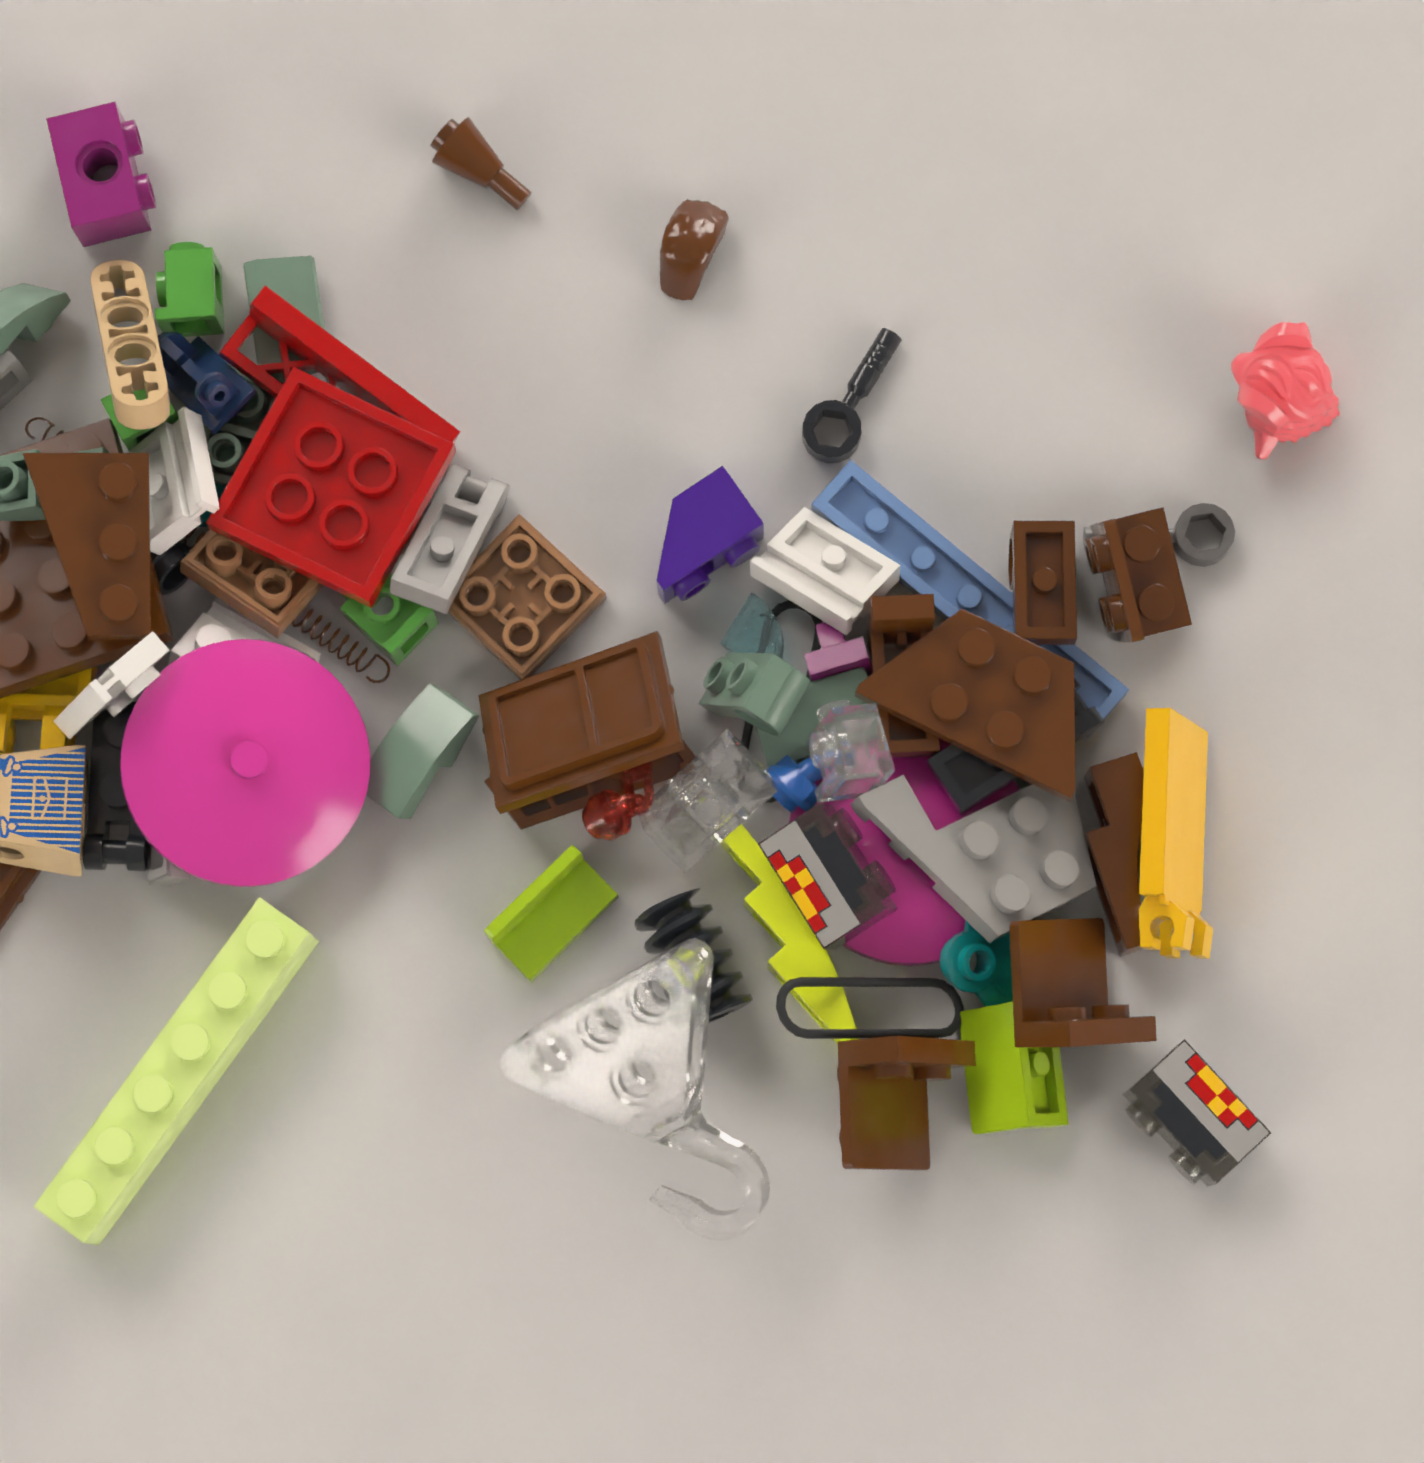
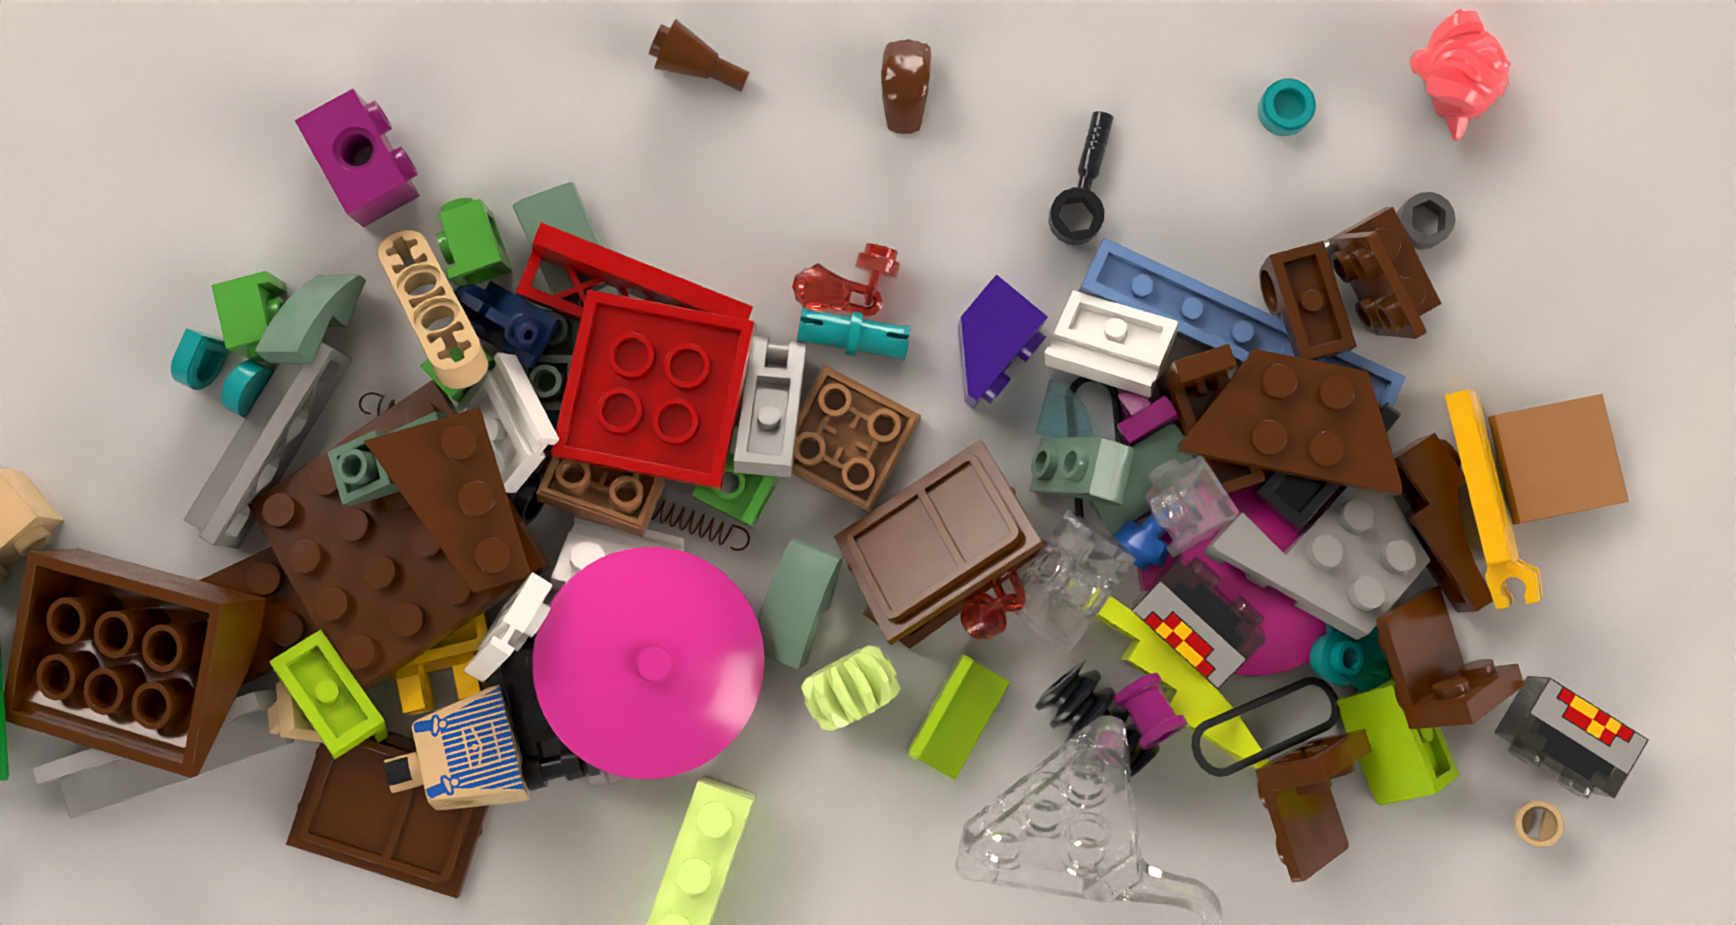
camera: 20 degrees left, 5 degrees up
(446, 849) = (850, 688): none -> yellowish green gear
(541, 436) = (824, 290): none -> clear red piece
(559, 490) = (853, 333): none -> teal pin
(748, 953) = (1150, 710): none -> magenta bush
(1089, 377) = (1286, 107): none -> teal tile
(1123, 1190) = (1550, 826): none -> tan hinge
(1269, 821) = (1558, 459): none -> medium nougat tile

